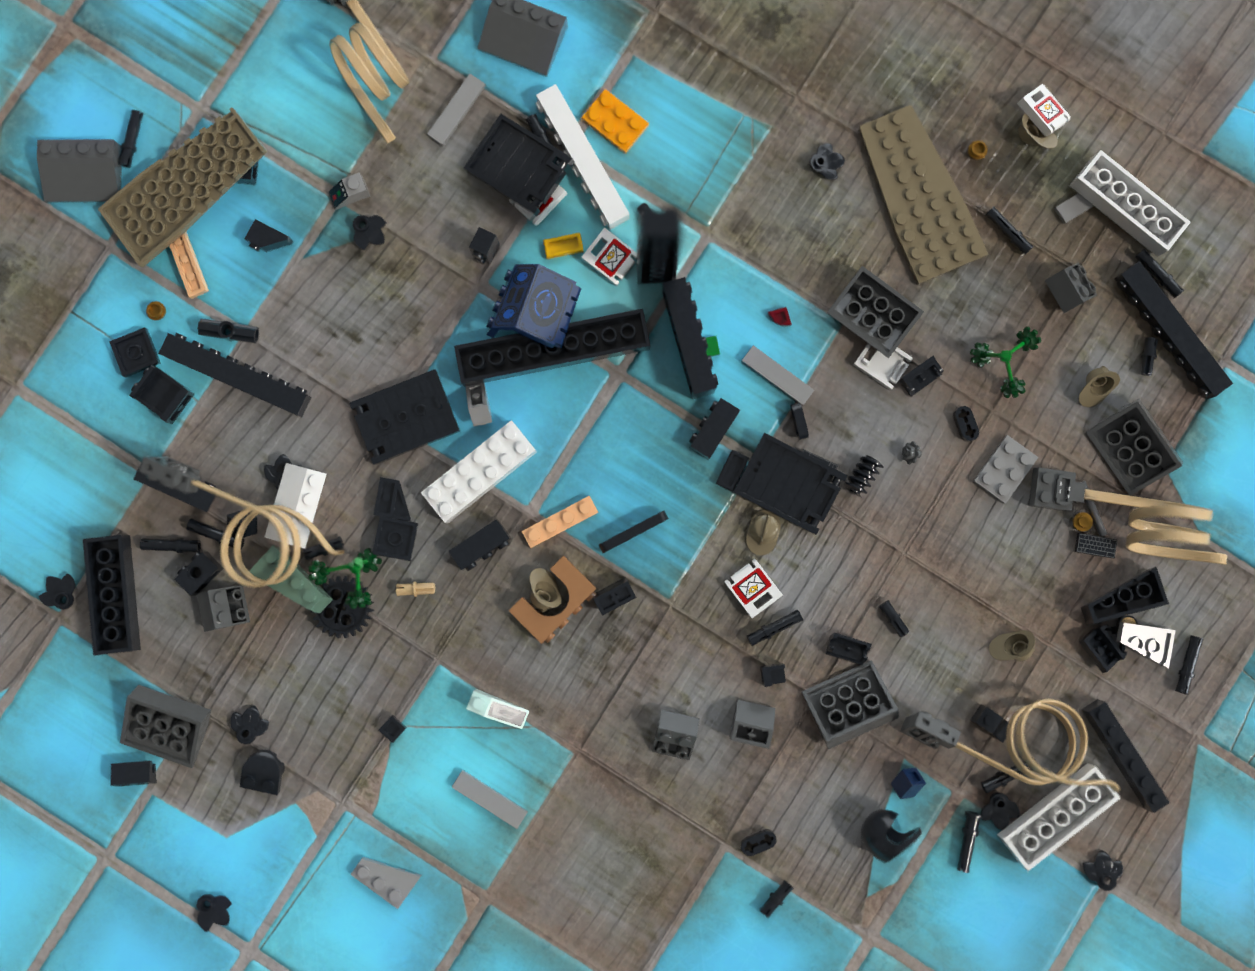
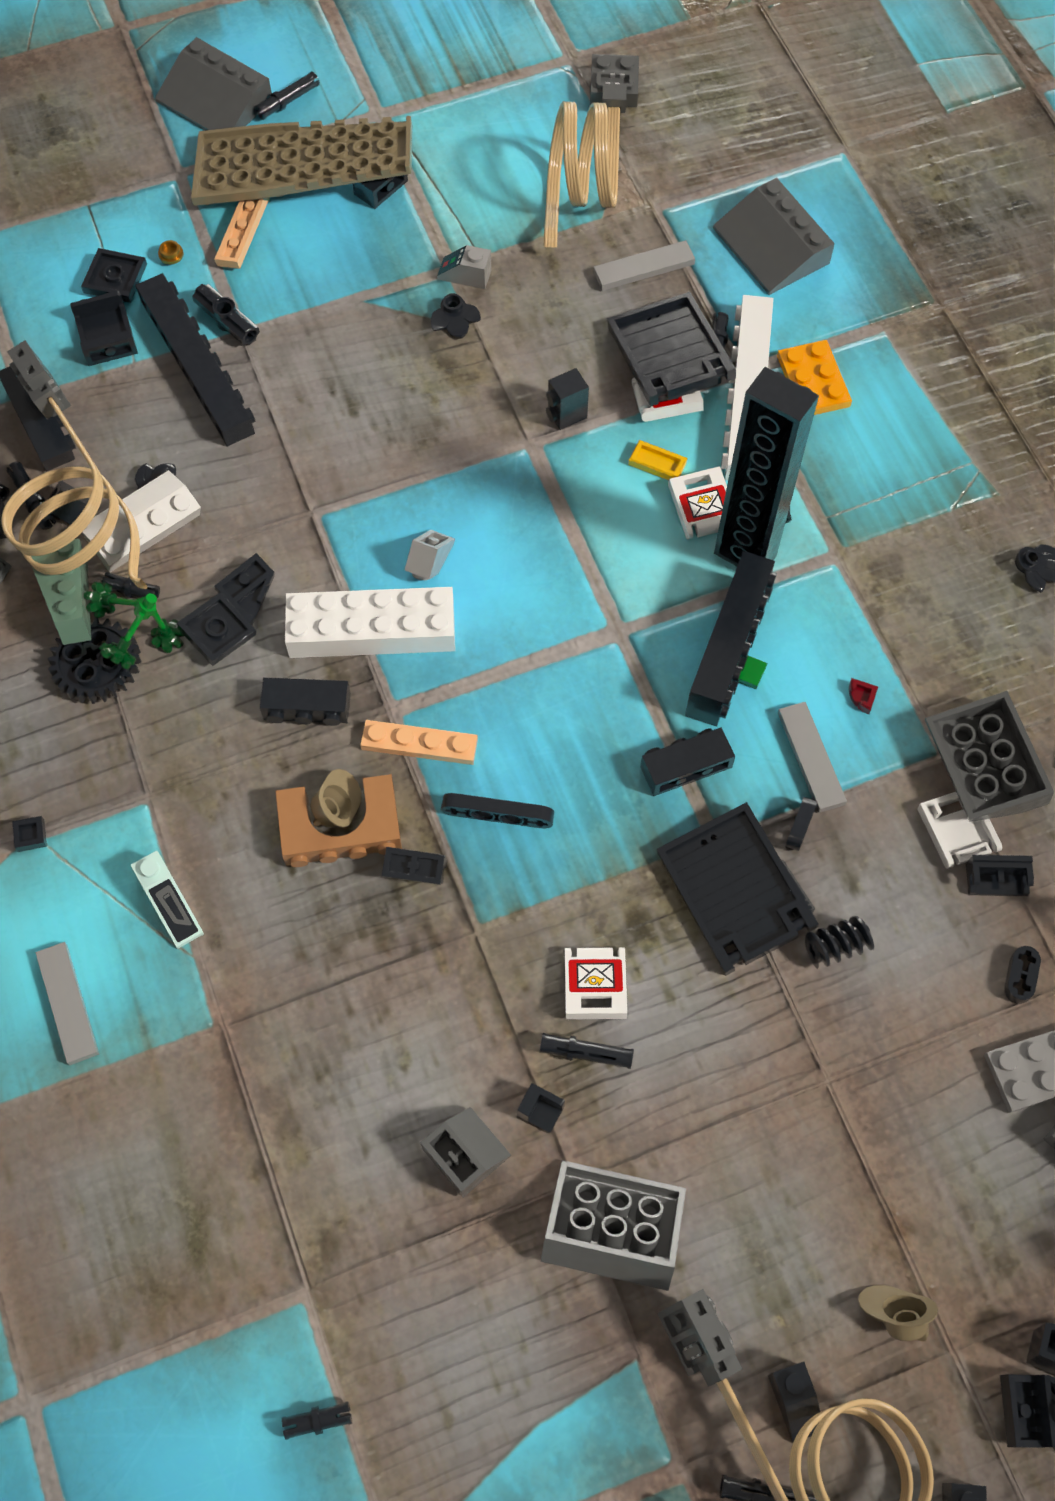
camera: 35 degrees right, 20 degrees down
(266, 238) = (342, 256): black slope -> none
(405, 416) = (337, 516): black door -> none
(415, 589) = (191, 698): tan axle -> none
(535, 304) = (578, 486): dark blue hinge -> none
(583, 343) = (563, 548): black brick -> none
(675, 735) = (356, 1092): dark grey slope -> none
(732, 470) = (672, 825): black tile -> none
(760, 847) = (350, 1329): black beam -> none
(763, 532) = (658, 926): dark tan piece -> none
(848, 648) = (664, 1145): black hinge -> none
(882, 839) = (524, 1437): black piece -> none
(894, 618) = (754, 1153): black axle -> none
(908, 783) = (617, 1395): dark blue panel -> none
(911, 452) = (923, 958): dark grey plant -> none

